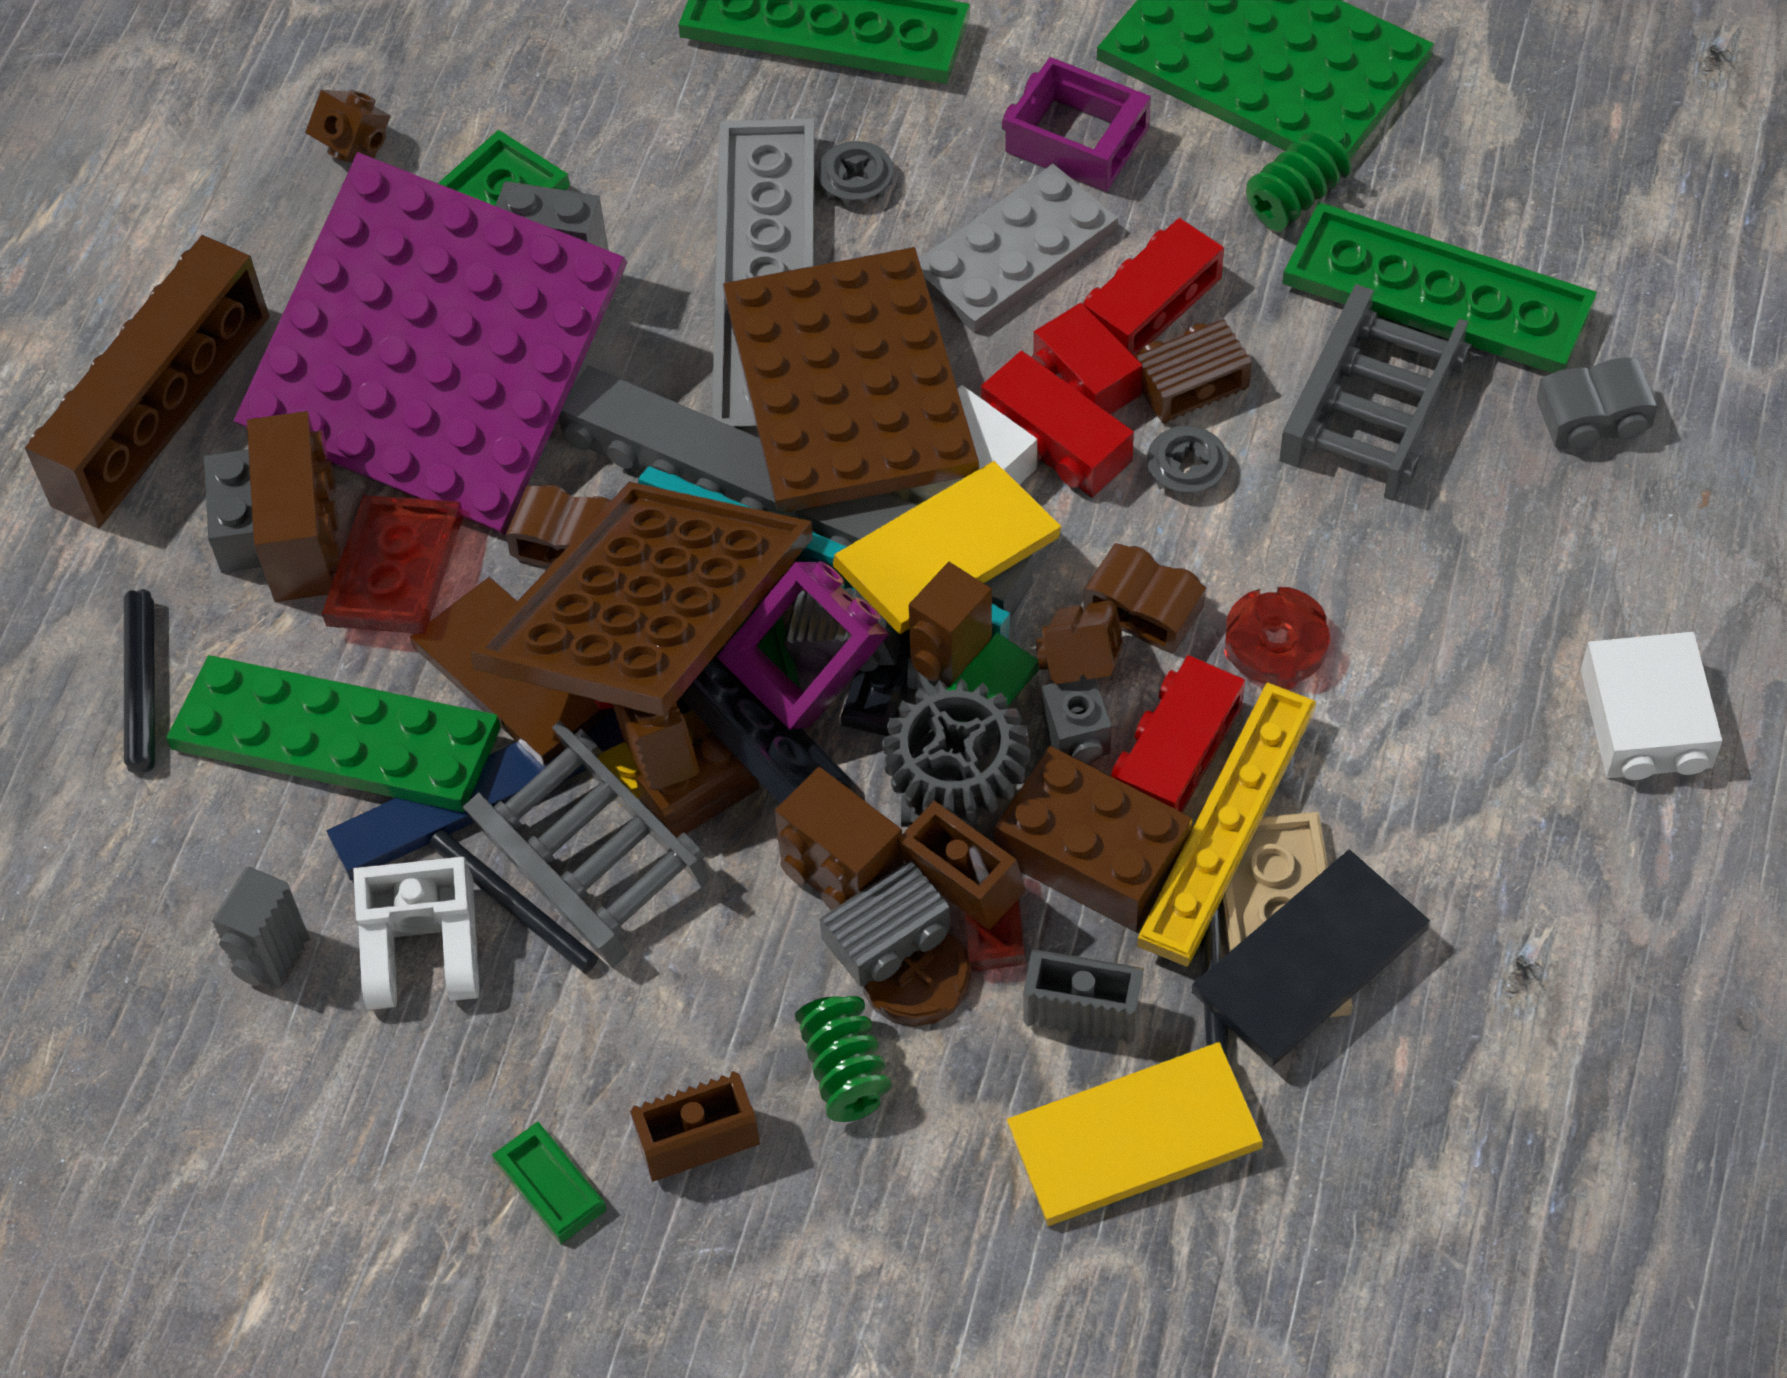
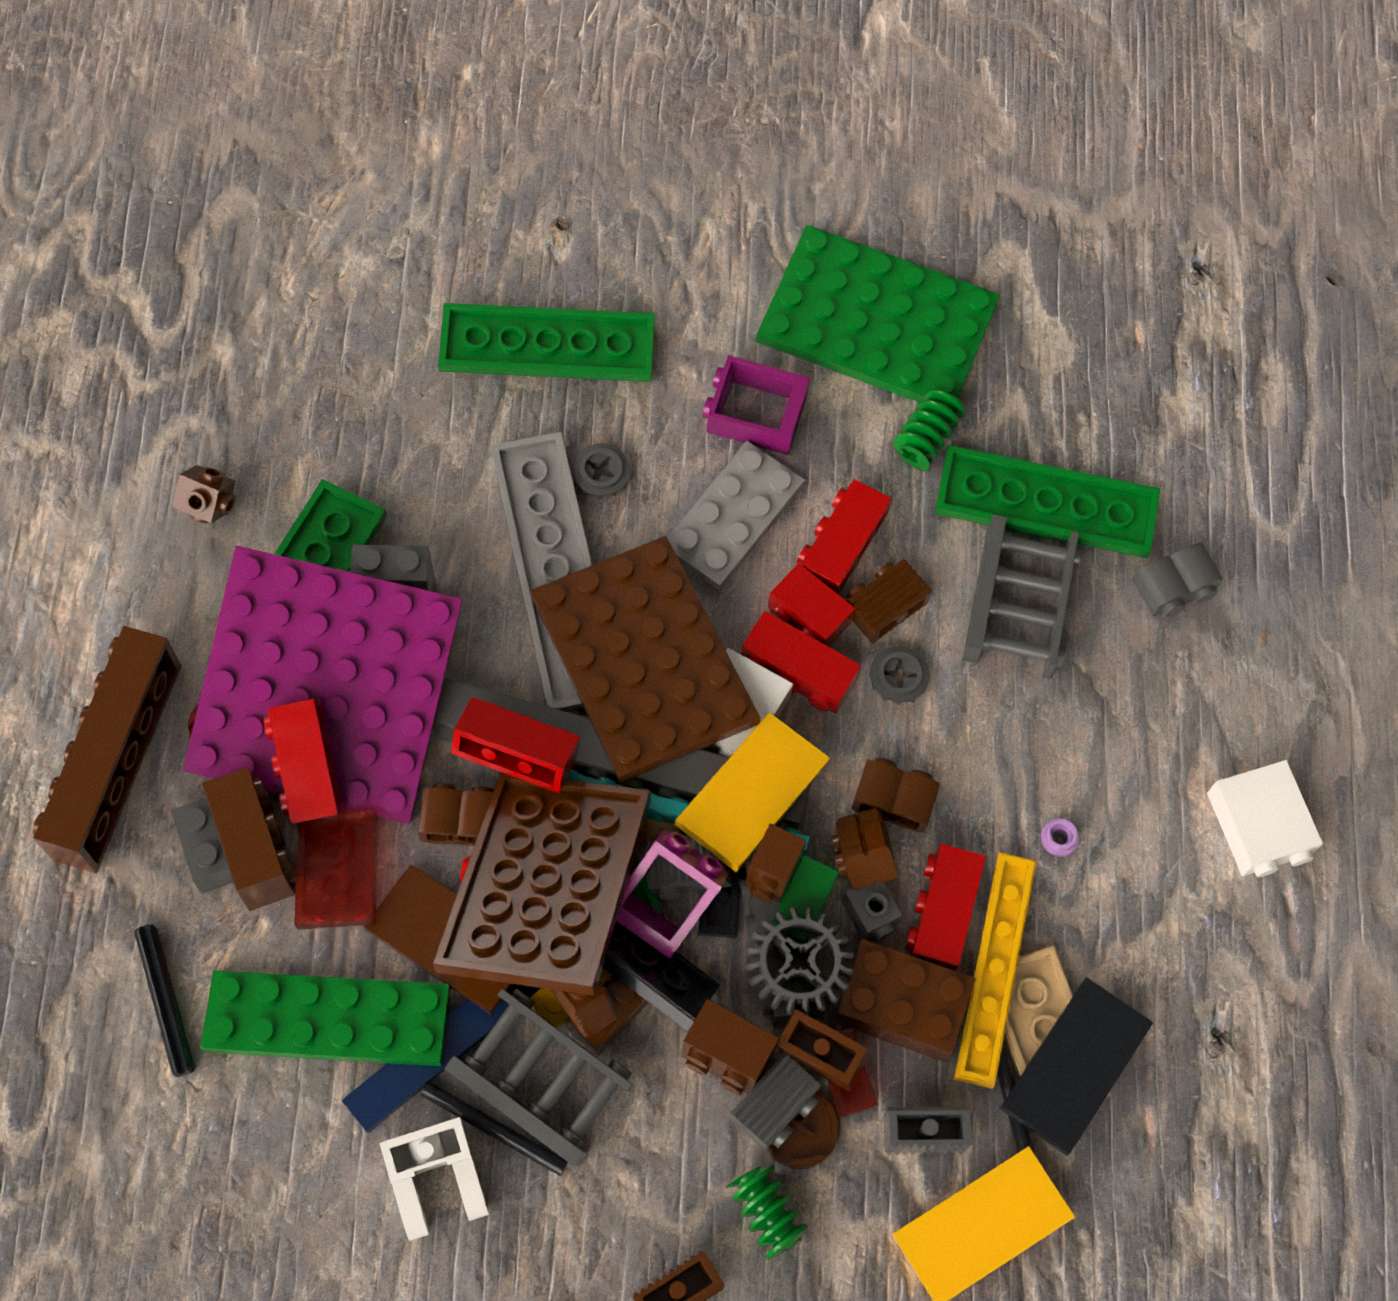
camera: 20 degrees left, 10 degrees up
(260, 928) = (317, 1200): dark grey brick -> none
(381, 419) = (303, 760): none -> red brick
(652, 442) = (515, 744): none -> red brick
(1273, 662) = (998, 830): clear red plate -> none
(1359, 673) = (1065, 828): none -> lavender plate

